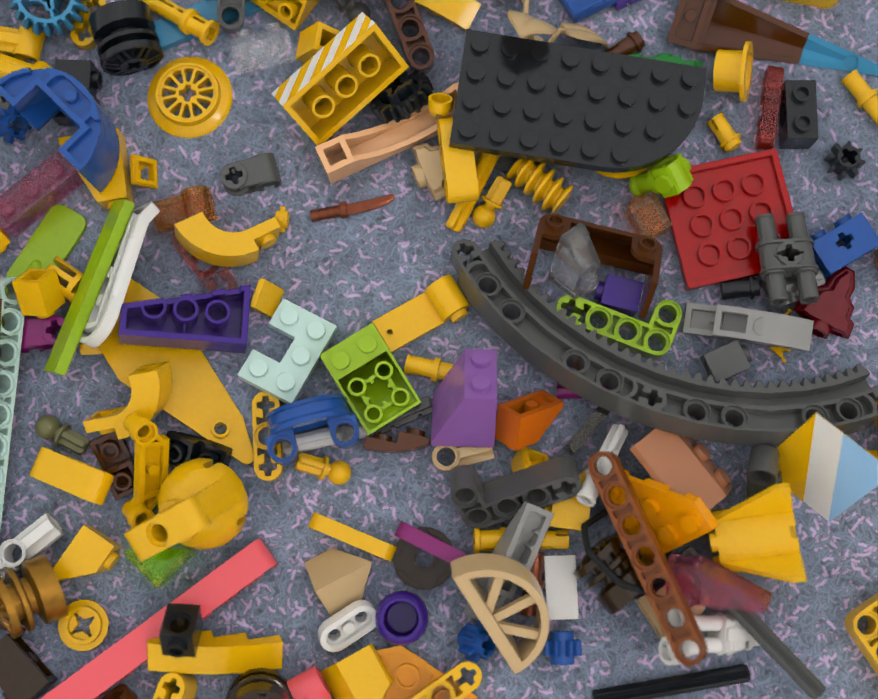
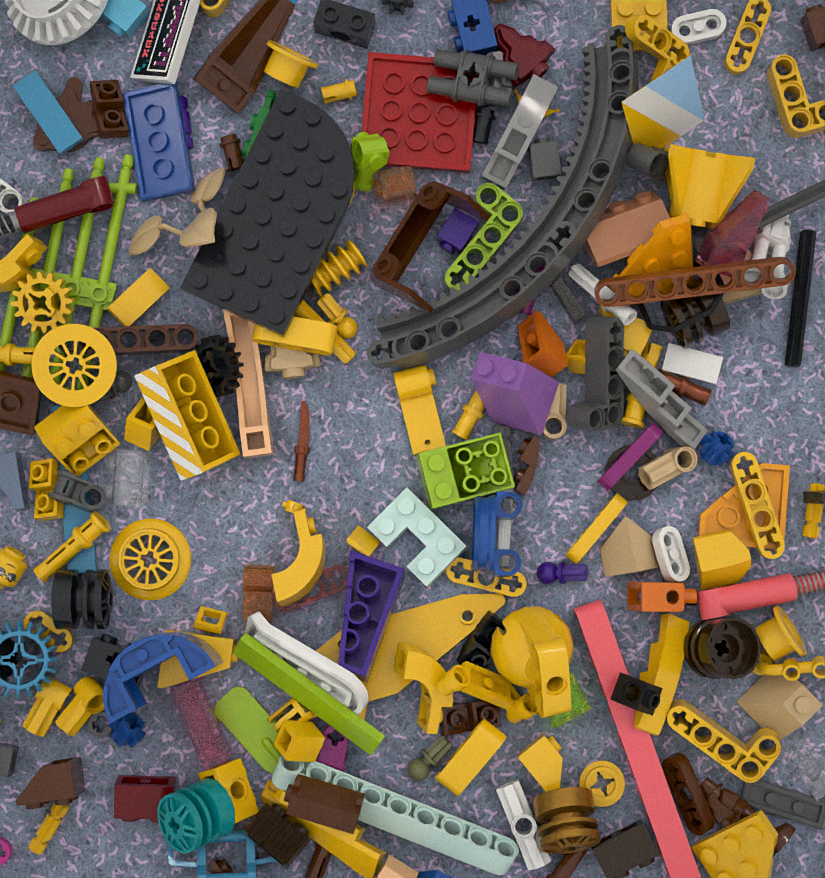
camera: 75 degrees left, 5 degrees up
(253, 174) = (245, 518): dark grey piece -> none
(291, 502) = (549, 572): none -> dark purple axle
(292, 614) = (654, 596): none -> orange torso
(337, 472) = (535, 525): yellow axle -> none
(401, 617) = (678, 505): dark purple piece -> none
(438, 591) = (667, 467): none -> tan piece
(440, 104) = (236, 328): yellow hinge -> none
(502, 568) = (667, 407): tan window -> none
(562, 648) = (743, 378): blue gear -> none
(575, 263) = (422, 260): clear slope -> none
(770, 101) = (323, 41): clear red beam -> none

